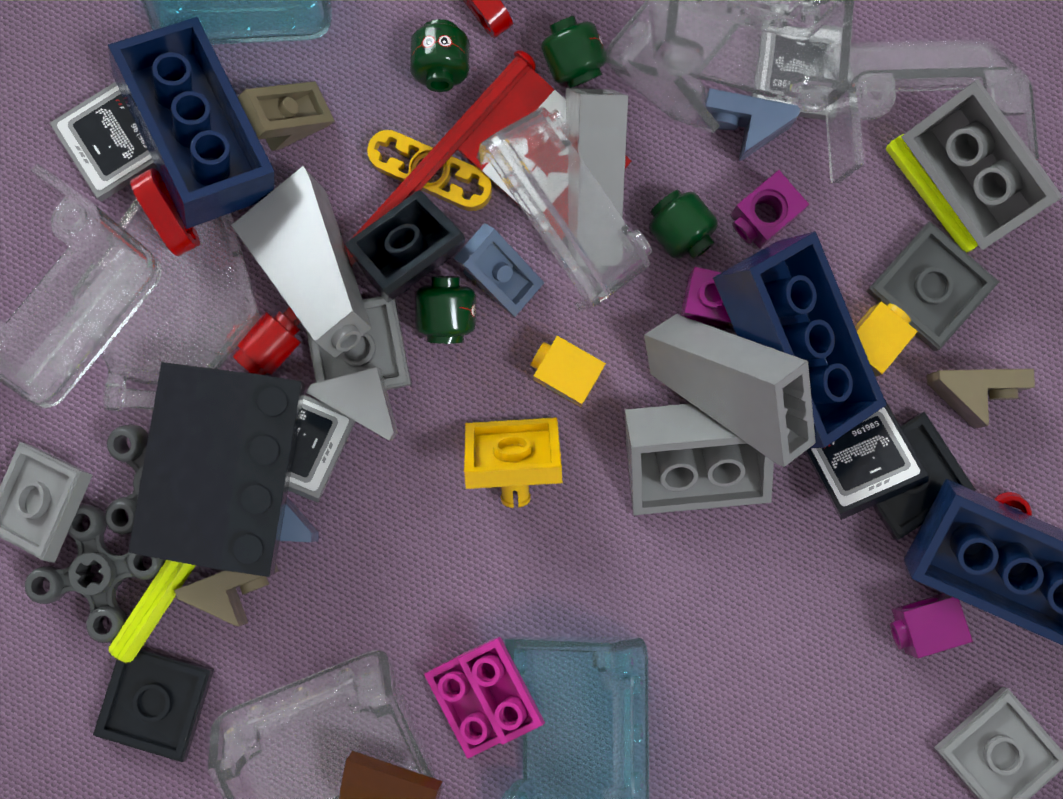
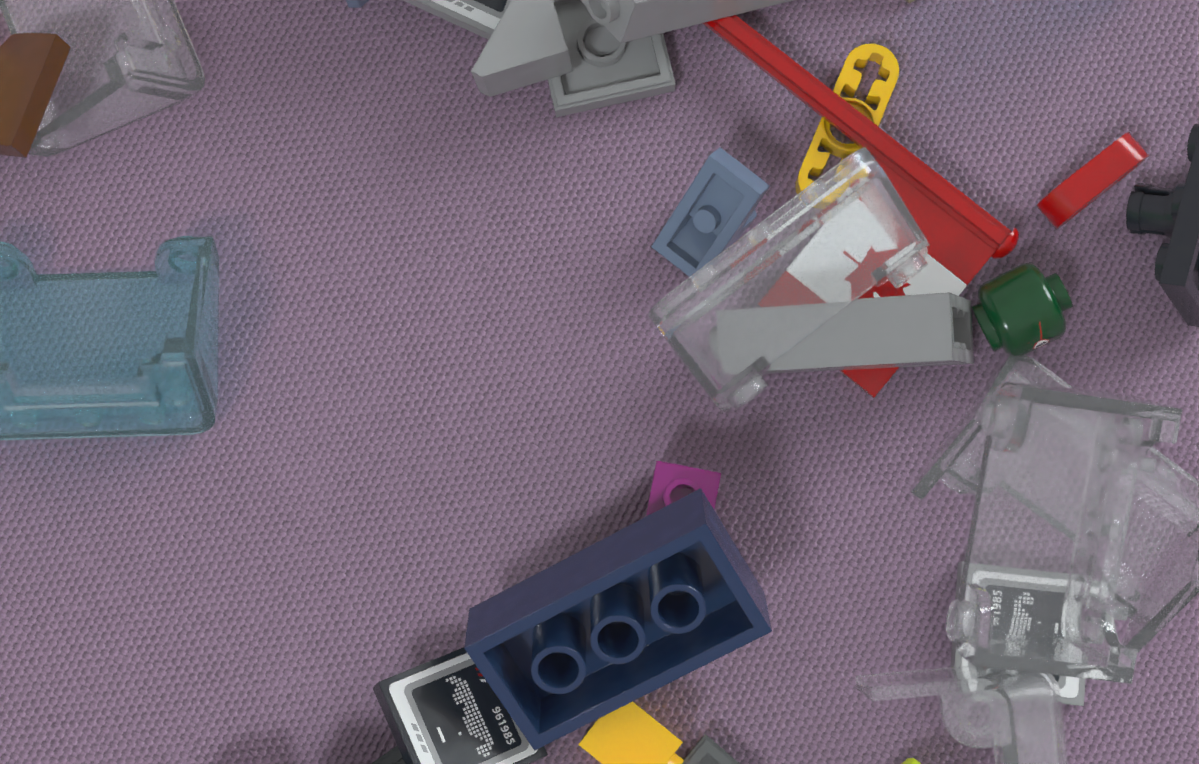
camera: 90 degrees right, 5 degrees down
(405, 245) = (734, 85): black slope -> none
(439, 55) = (1005, 130): dark green head -> none
(445, 310) = (653, 149): dark green head -> none
(484, 697) = (137, 213): dark pink slope -> none
(512, 456) = (456, 237): yellow tile -> none
(566, 370) = (576, 312): yellow brick -> none
(683, 224) = (785, 467): dark green head -> none
(691, 462) = (463, 492): light grey slope -> none
(738, 383) = (552, 530): light grey slope -> none
(760, 117) = (938, 573): sand blue slope -> none
(777, 193) = (839, 591): magenta brick -> none

